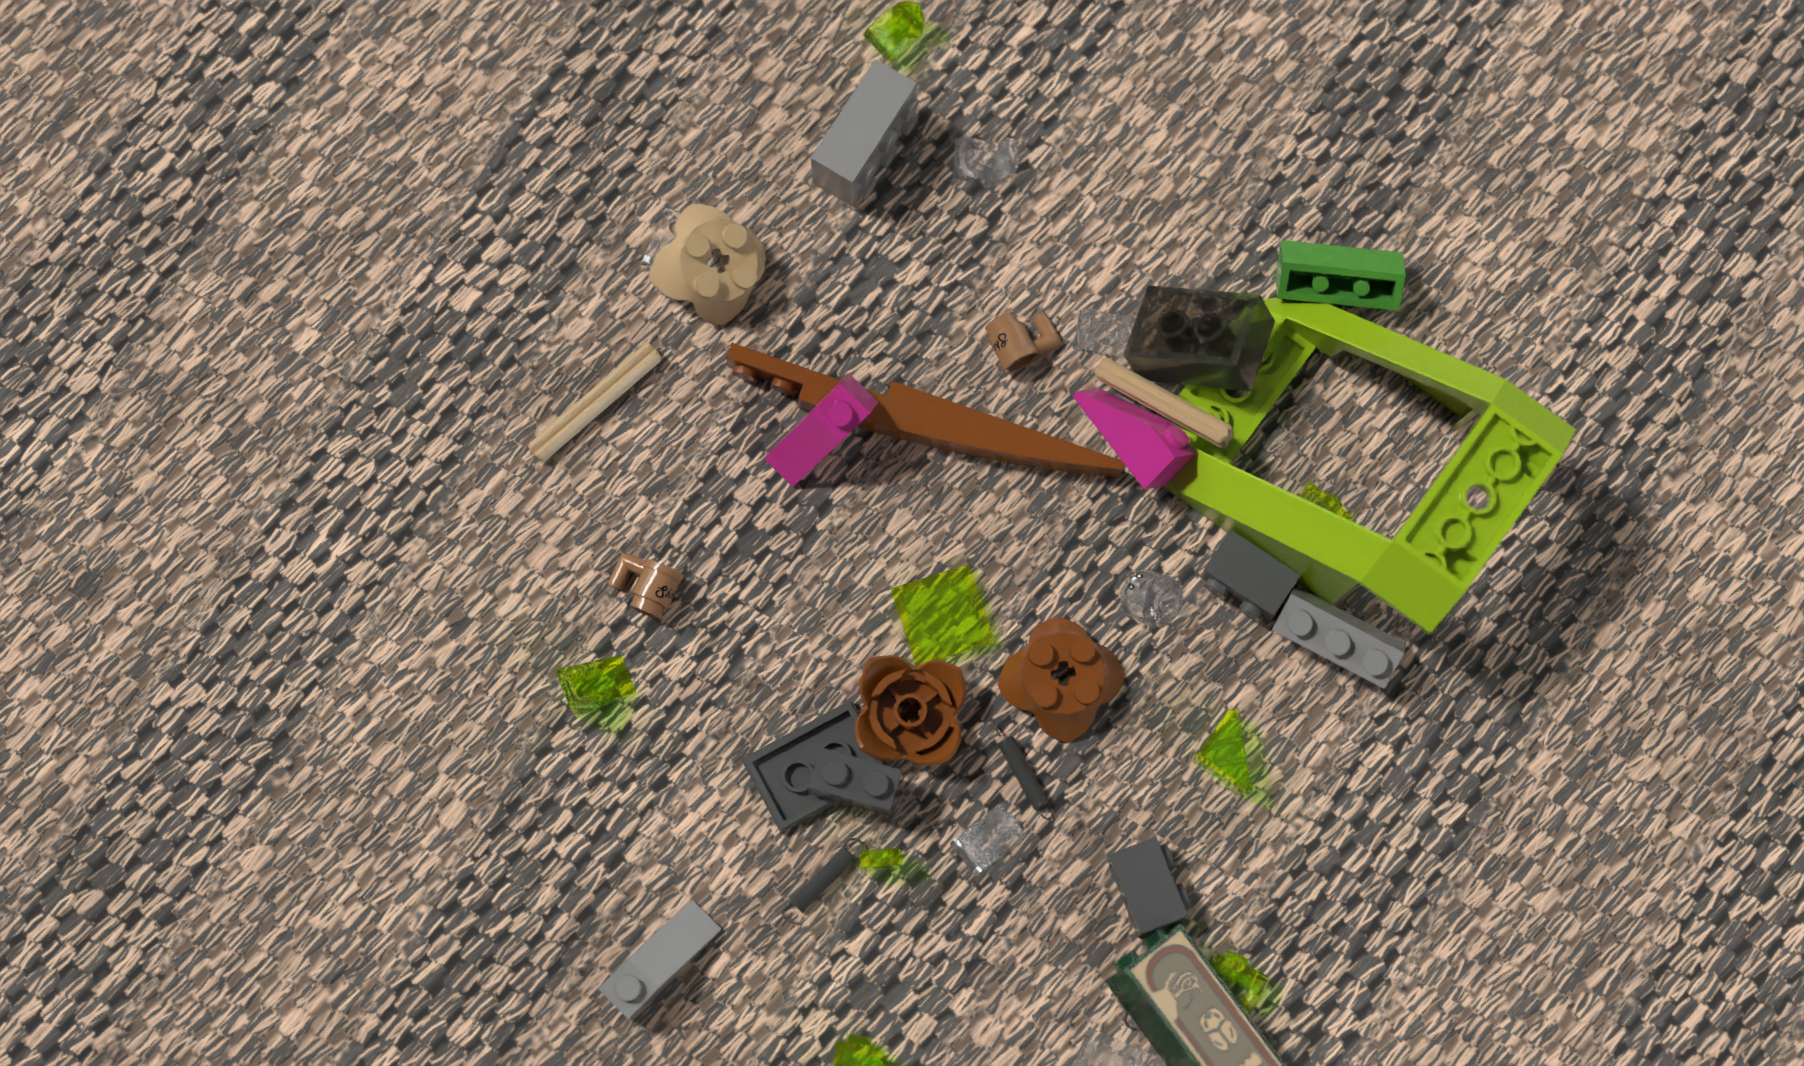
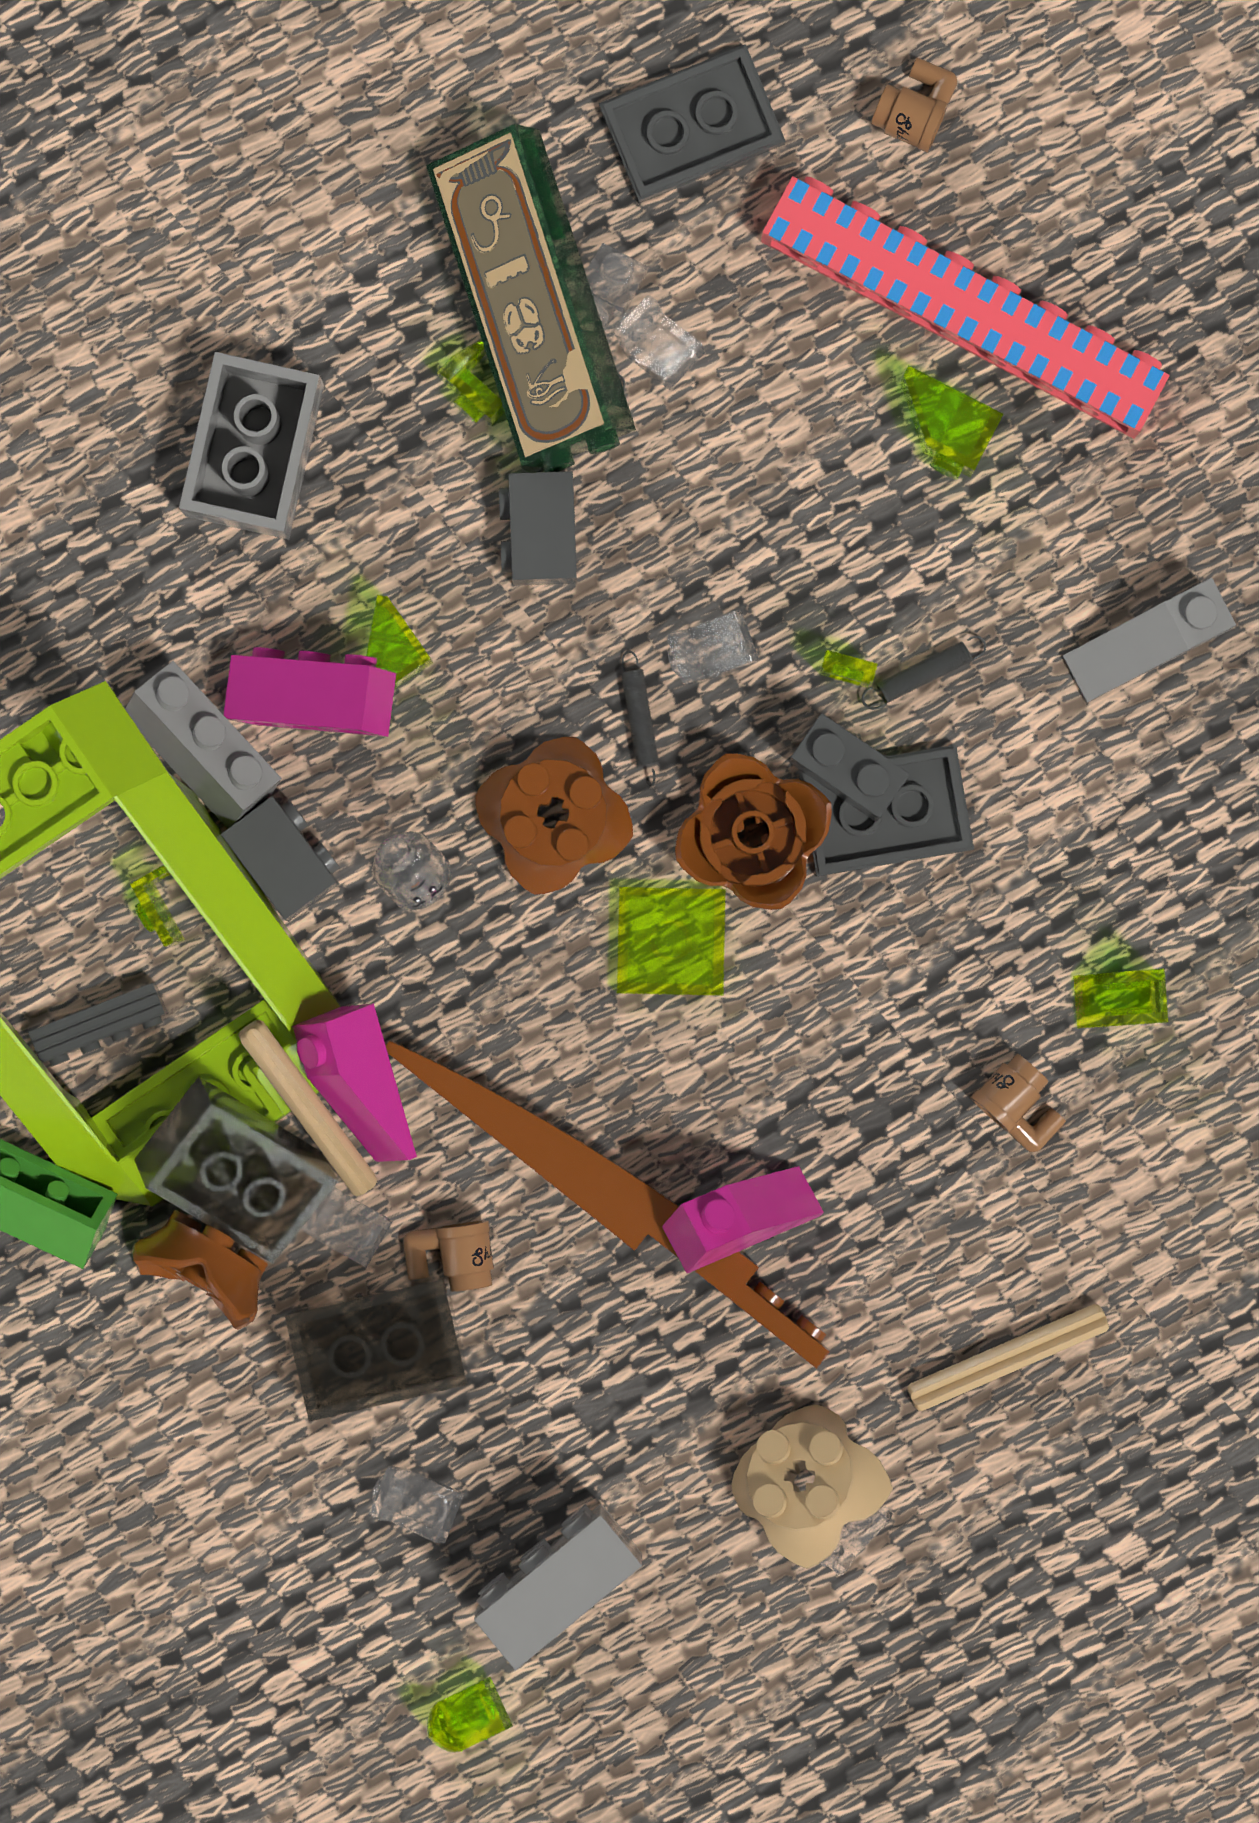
camera: 160 degrees left, 10 degrees up
(1051, 254) = (377, 1348): none -> clear smoke brick
(1193, 268) = (206, 1262): none -> dark orange brick
(1274, 699) = (310, 692): none -> dark pink brick
(1339, 414) = (104, 1020): none -> dark grey piece
(1387, 871) = (251, 445): none -> light grey brick

